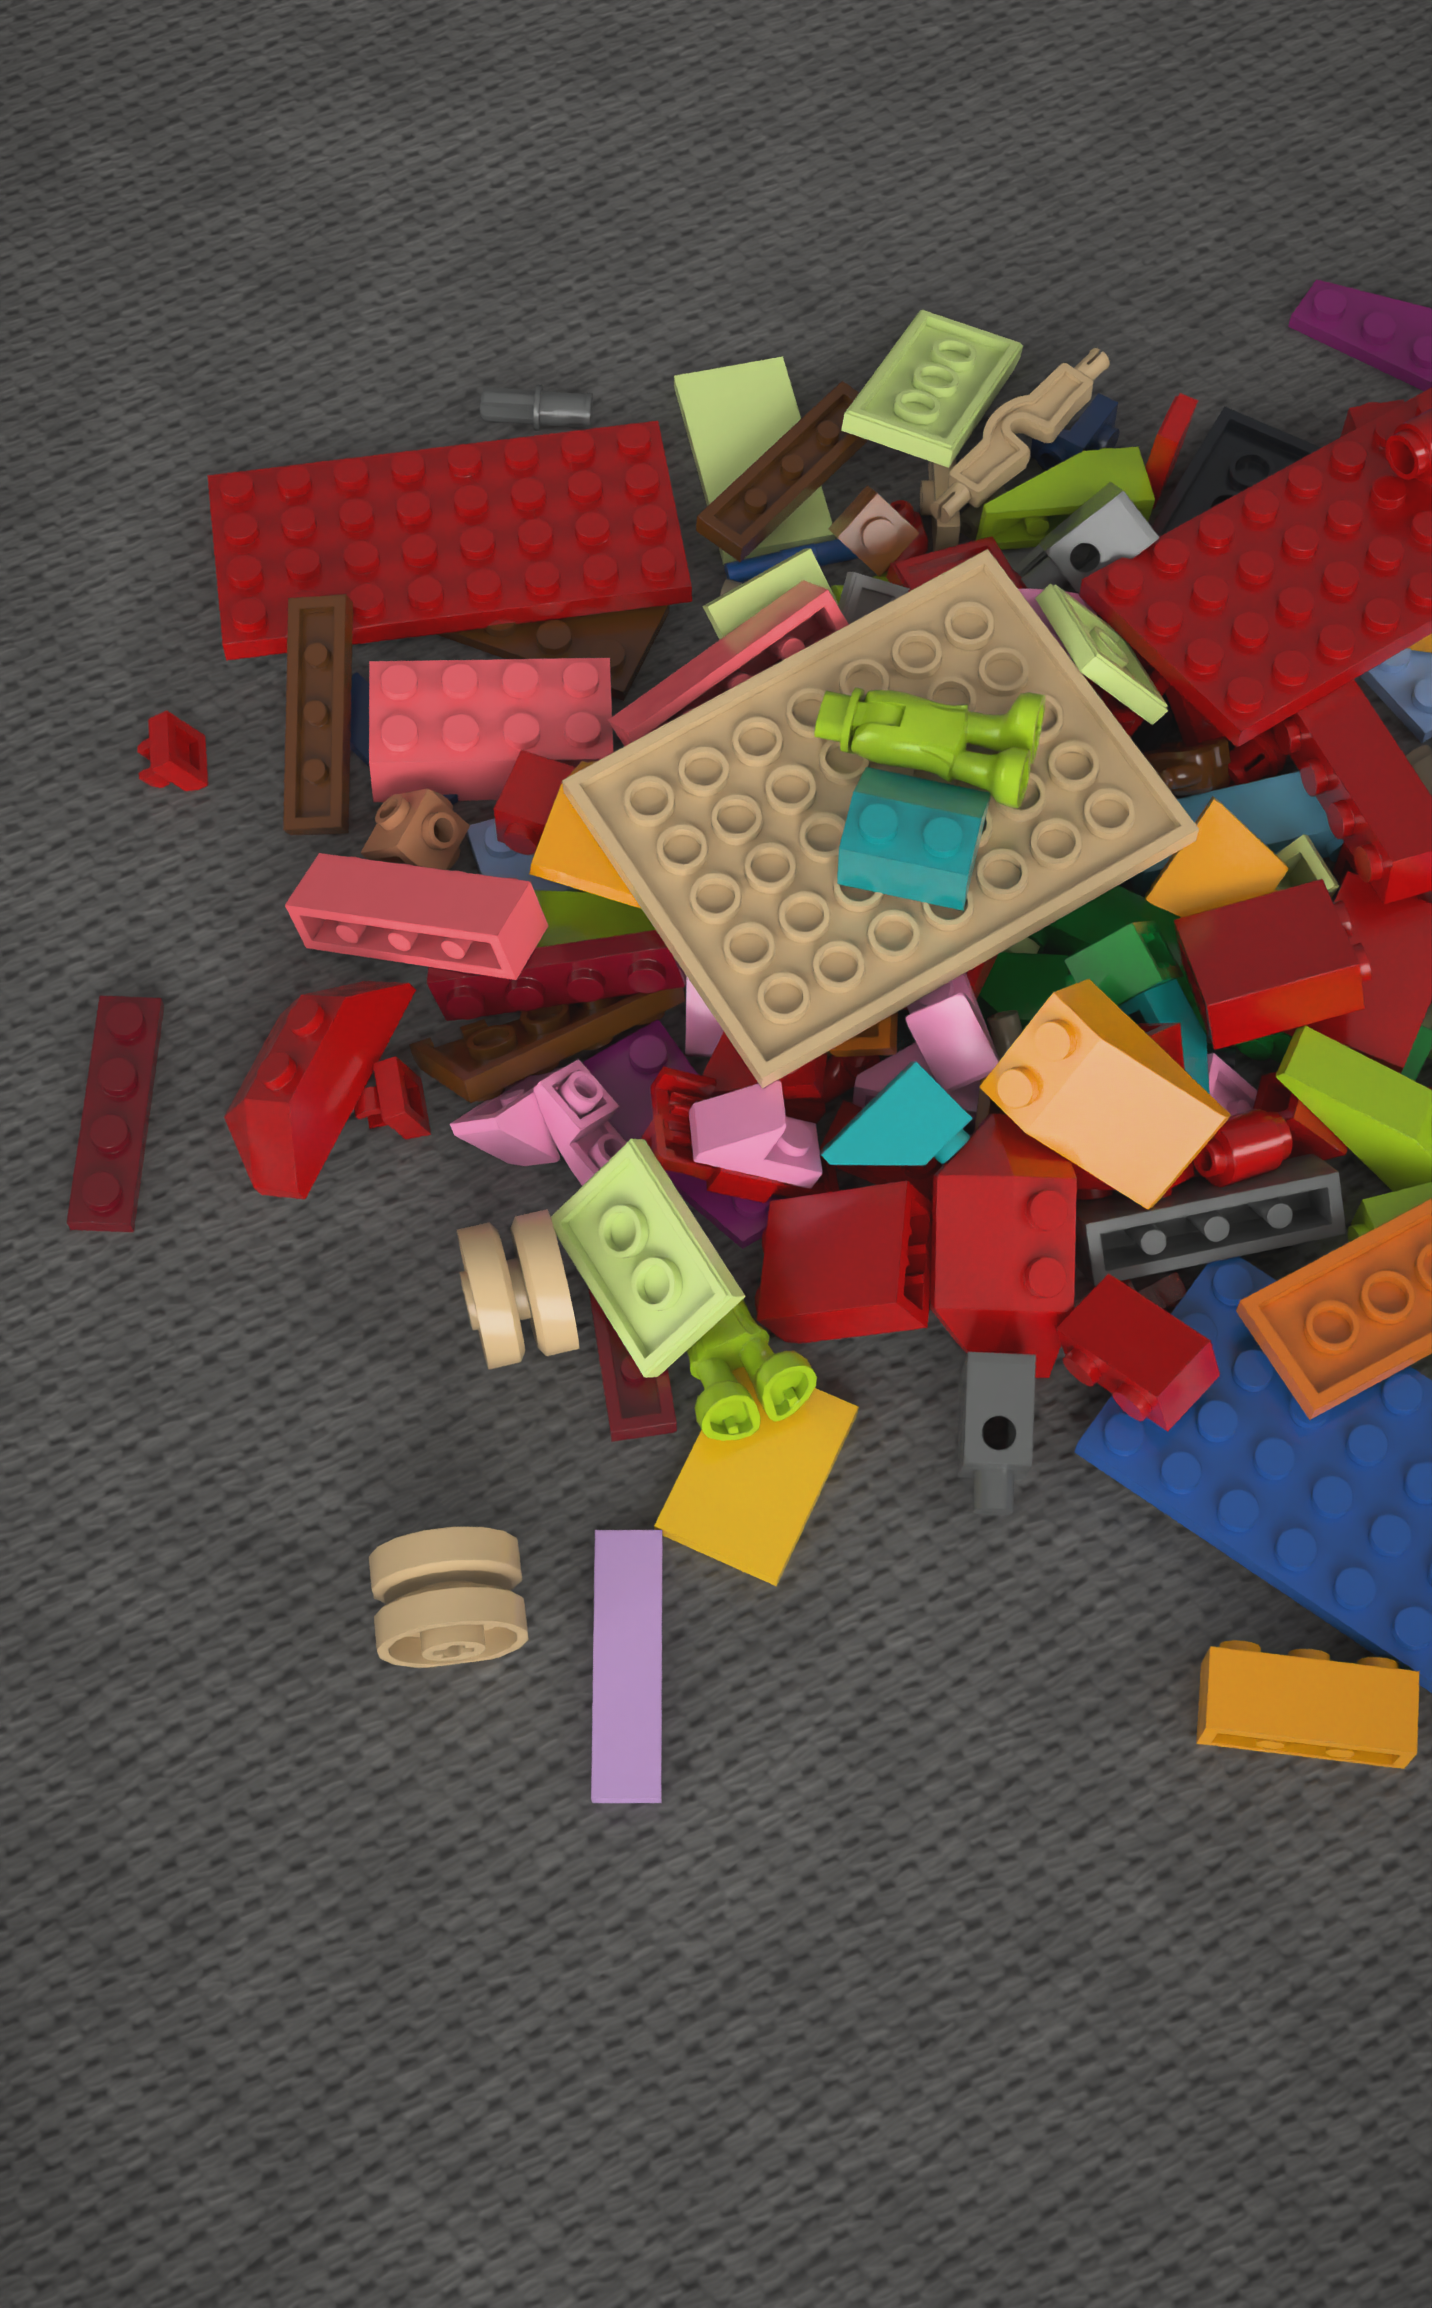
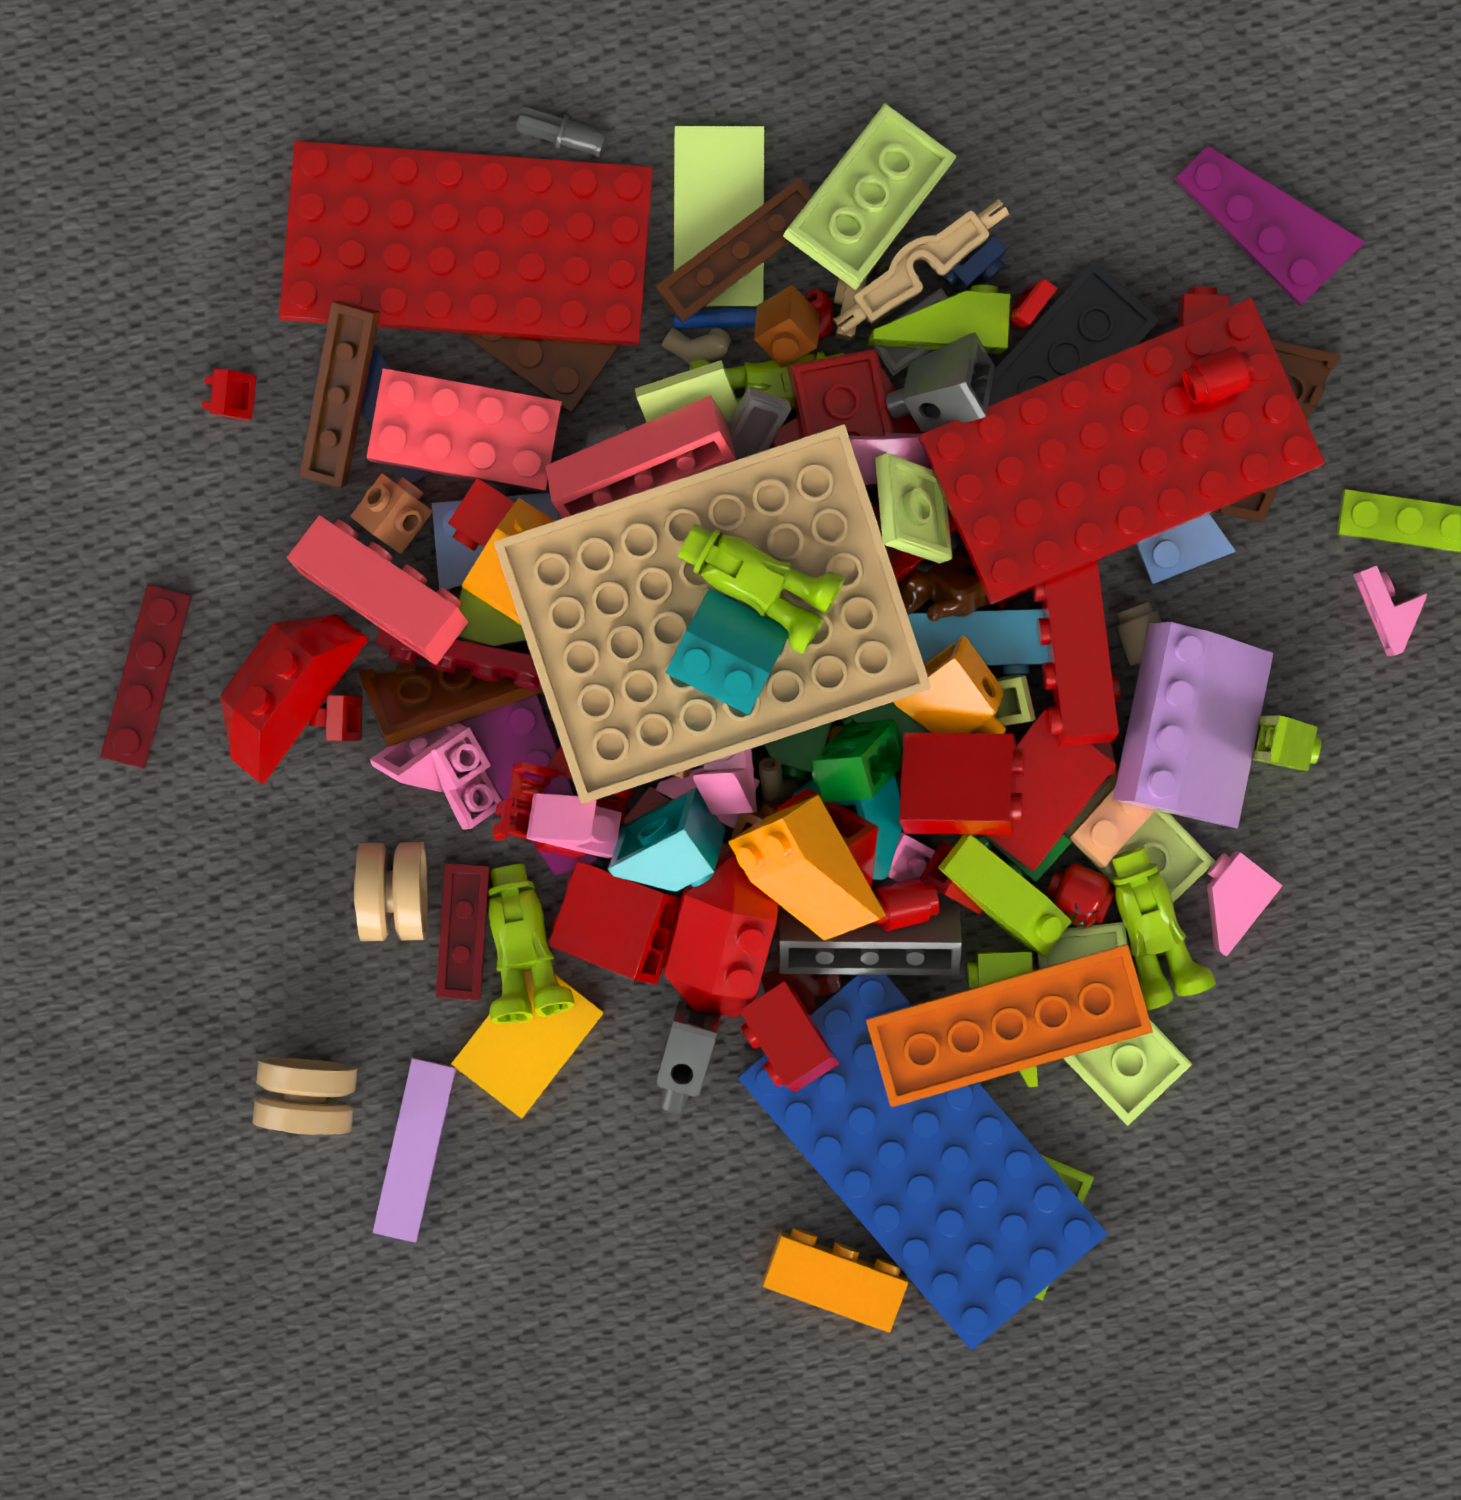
camera: 15 degrees right, 25 degrees up
(645, 1258) = (480, 894): yellowish green tile -> none

